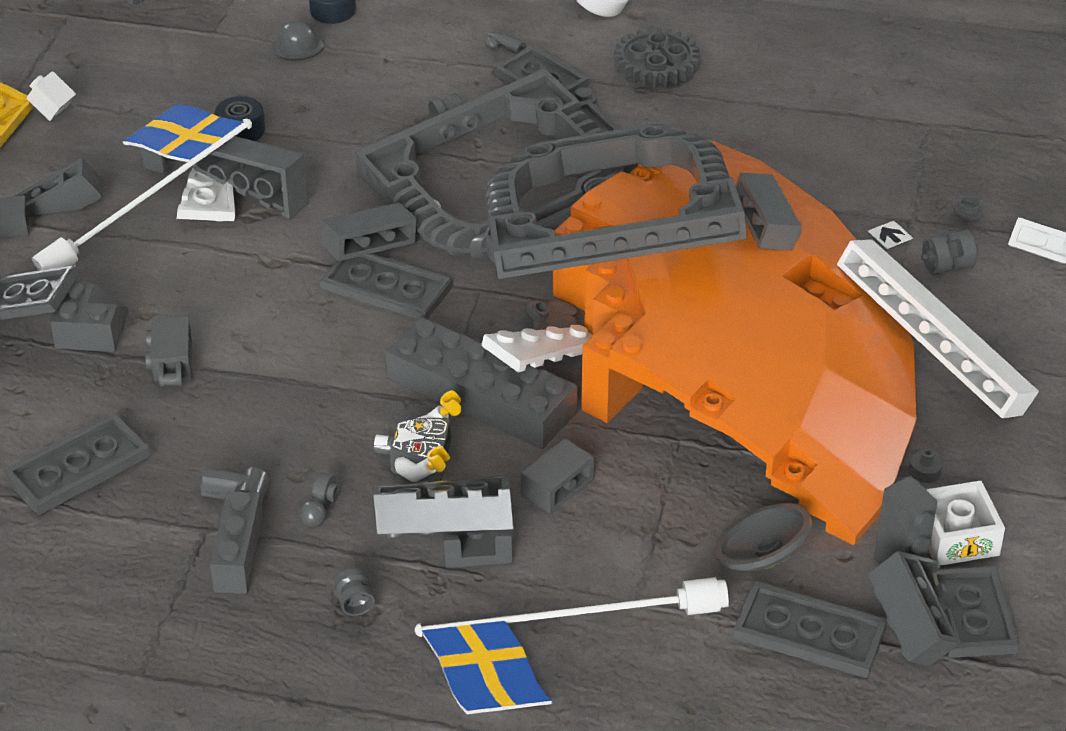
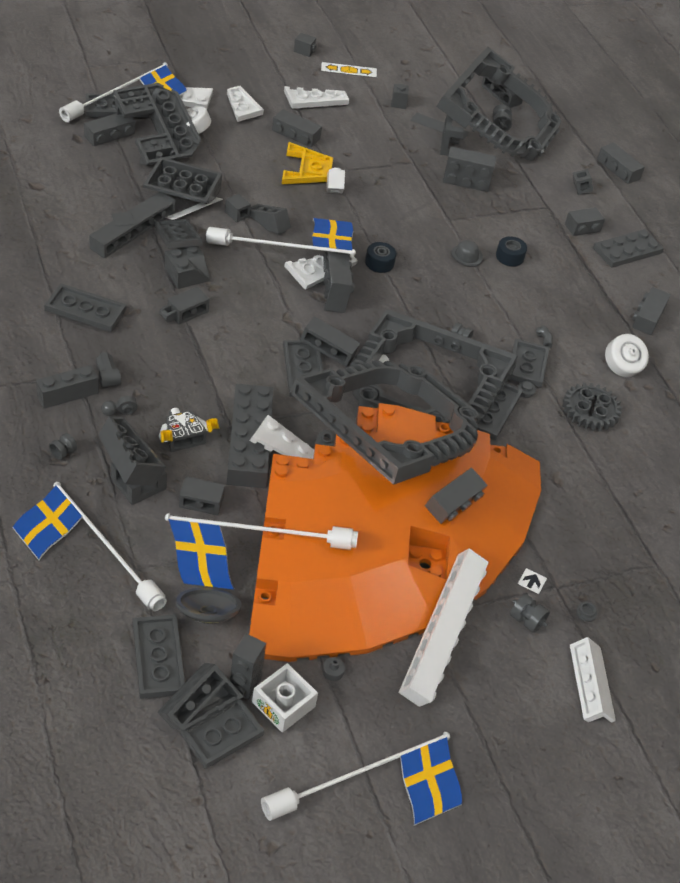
camera: 50 degrees right, 5 degrees up
(672, 493) = (204, 553): none -> flag

